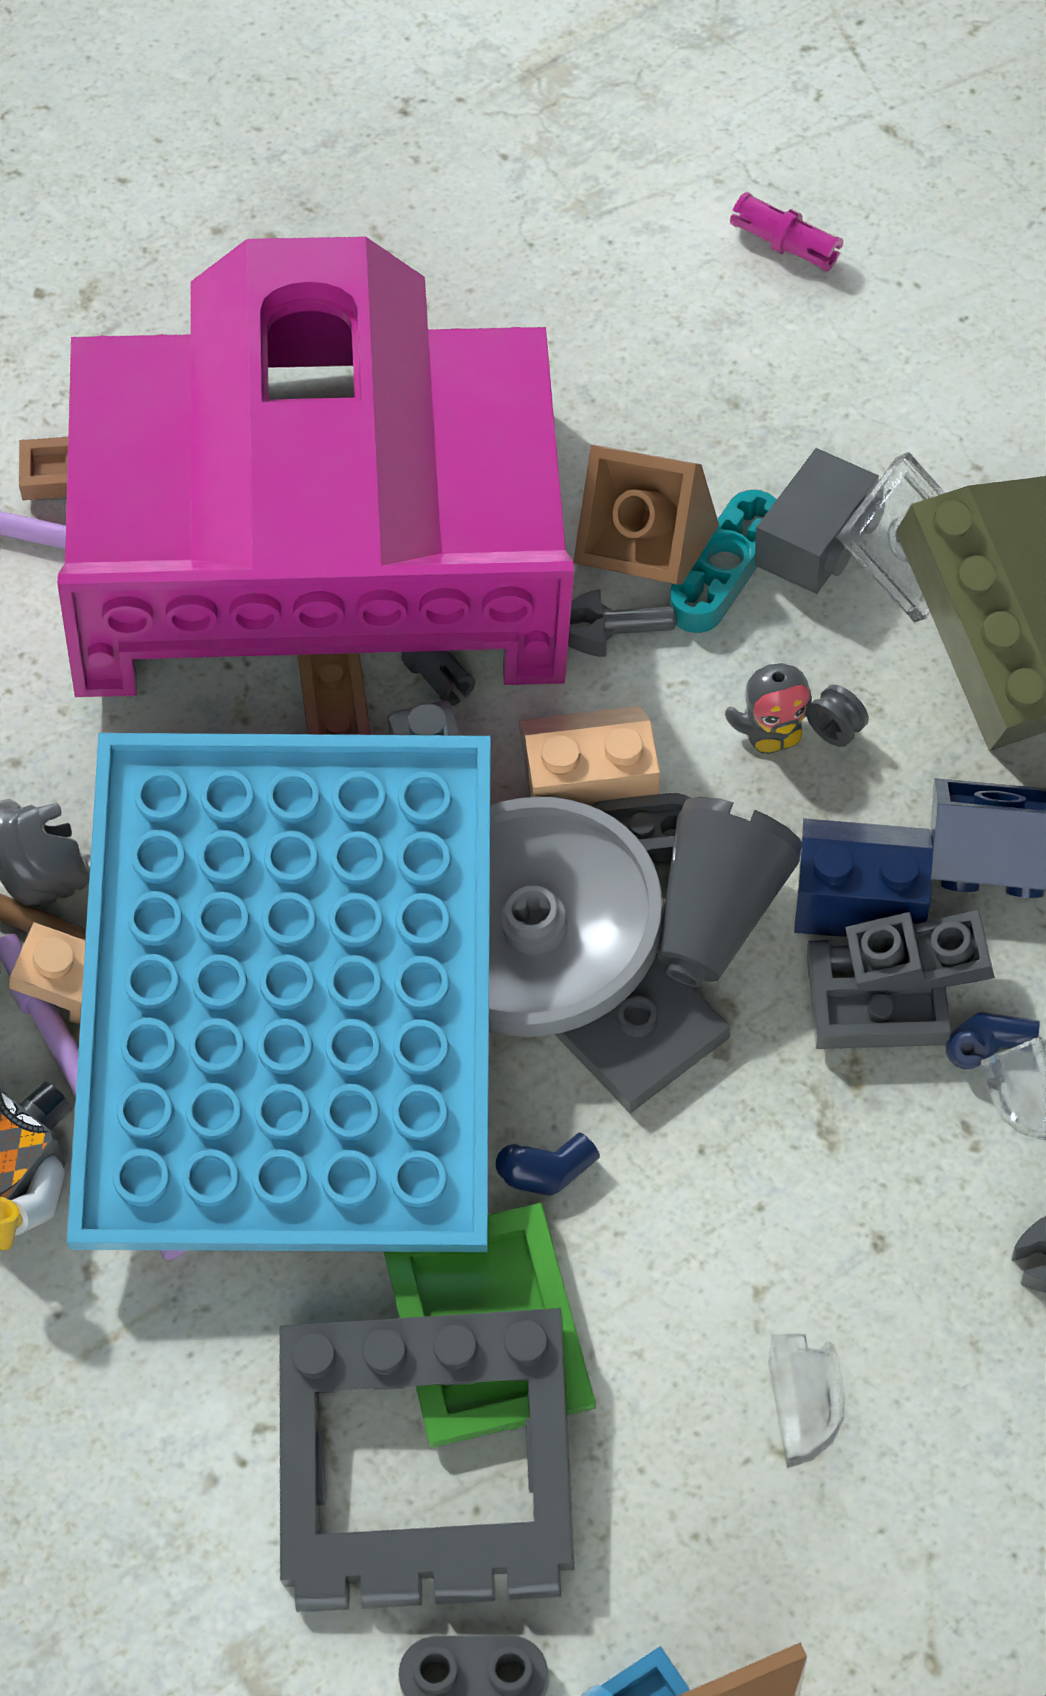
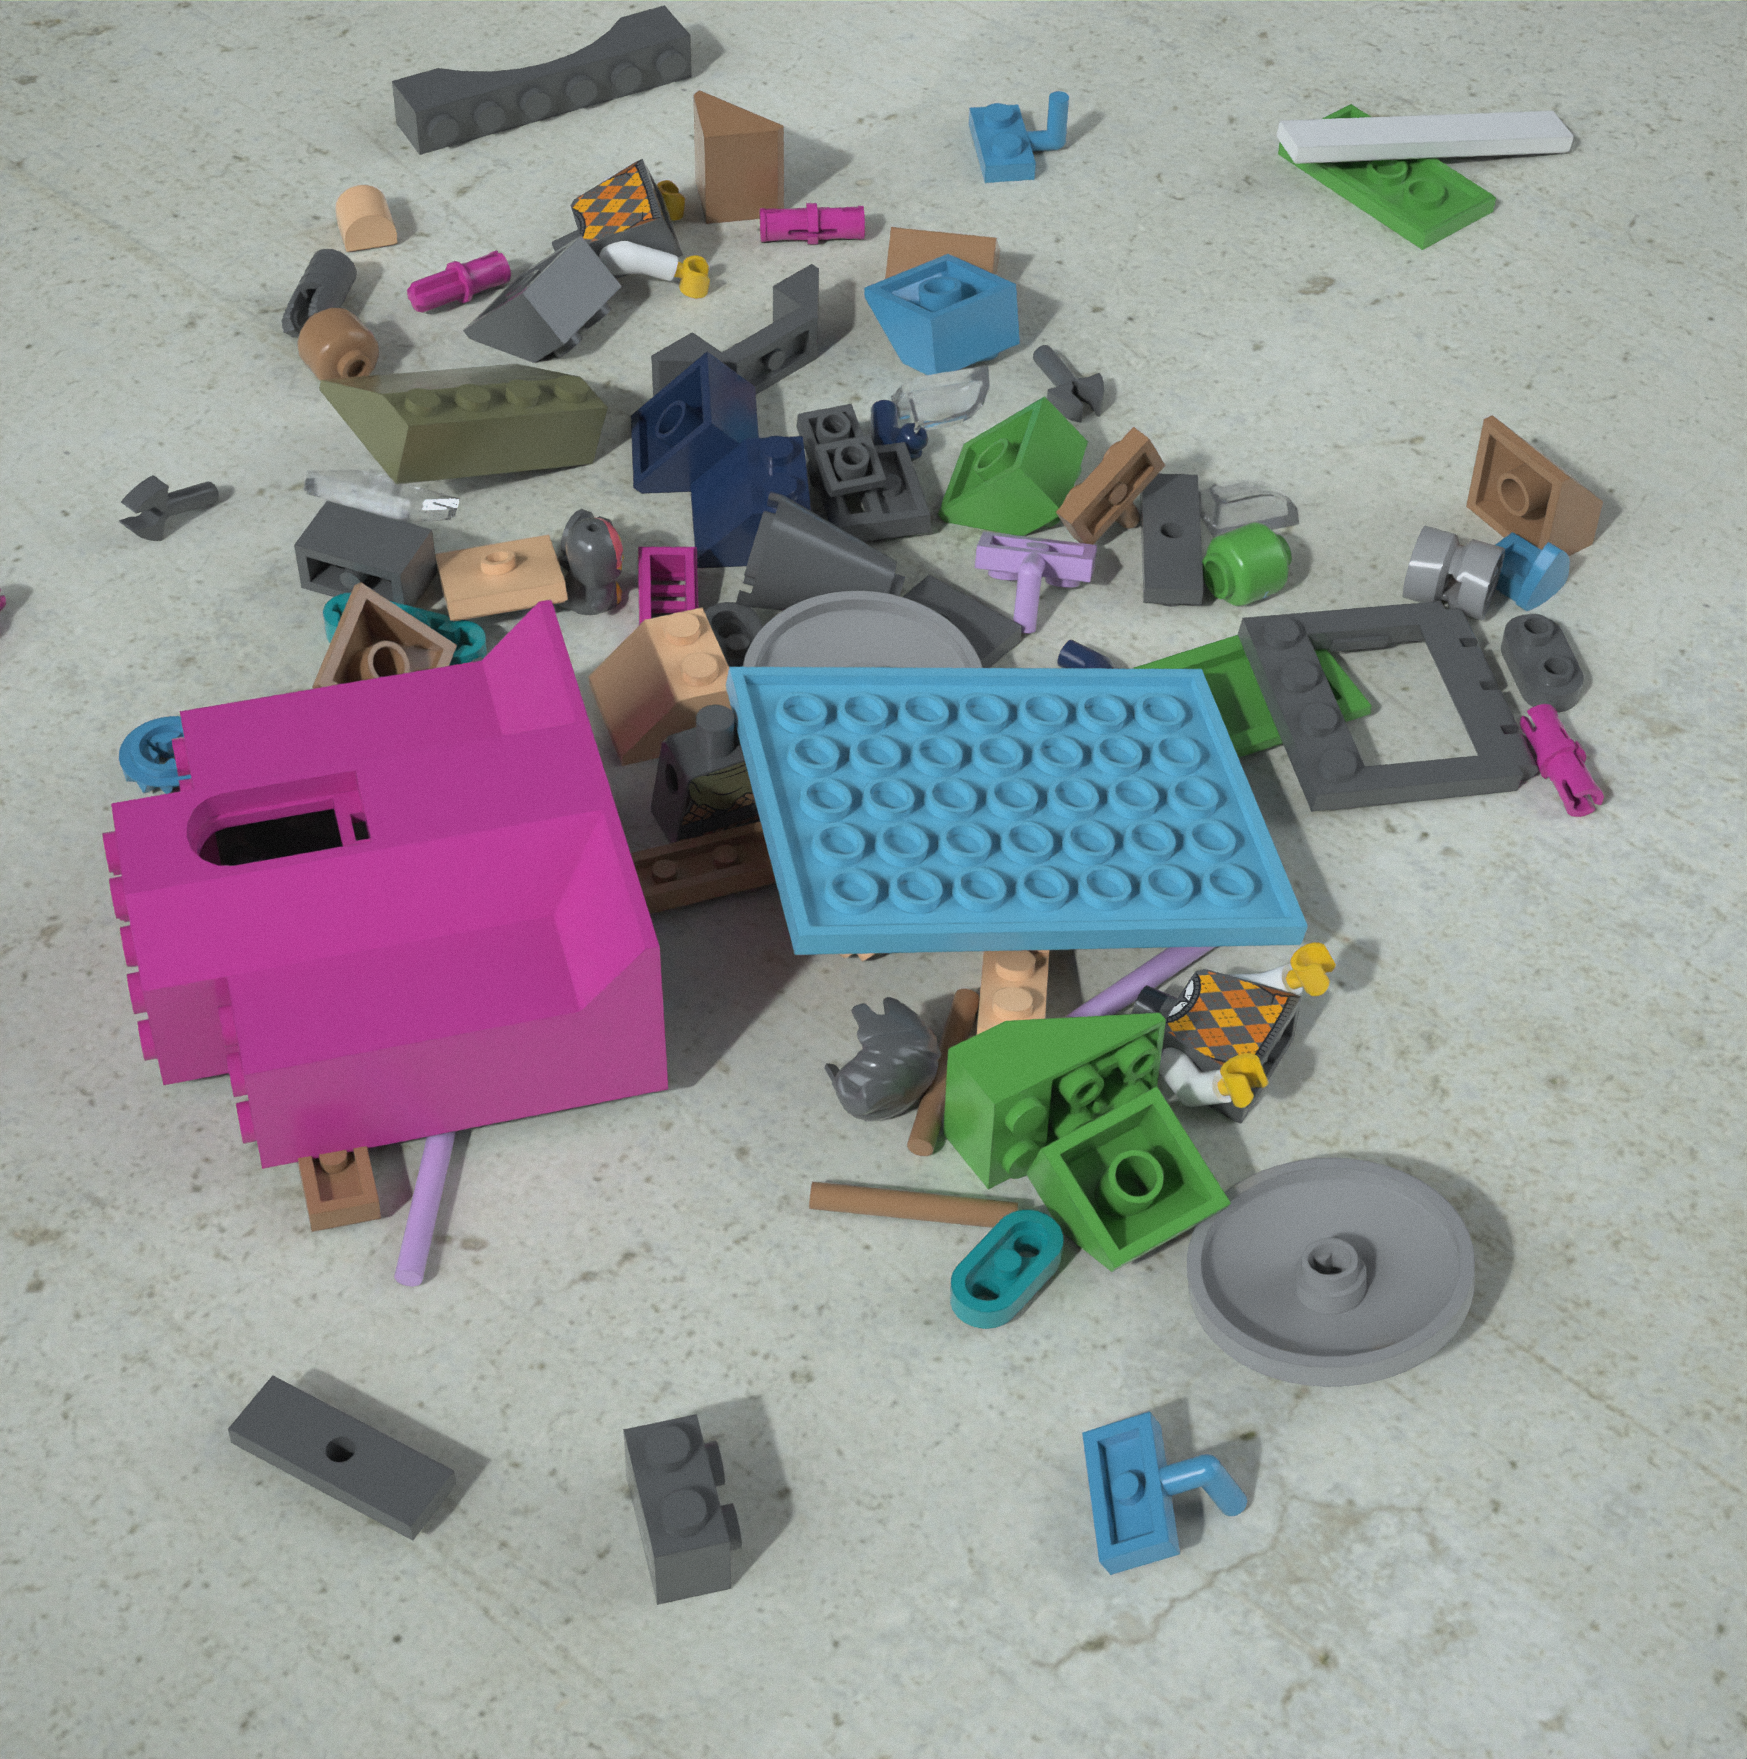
camera: 105 degrees left, 10 degrees down
(298, 1637) = (1561, 760): none -> dark pink pin
(588, 360) = (144, 747): none -> dark azure gear
(626, 1584) = (1453, 572): none -> light grey wheel
(683, 1359) = (1246, 564): none -> bright green head
(710, 1282) = (1171, 541): none -> dark grey tile
(733, 1132) = (1030, 560): none -> lavender plate
(758, 762) = (666, 565): none -> dark pink slope
(781, 623) = (500, 577): none -> light nougat plate
(805, 1215) = (1111, 489): none -> medium nougat plate
(881, 1144) = (1016, 472): none -> bright green slope
(922, 365) = (157, 505): none -> dark grey bar

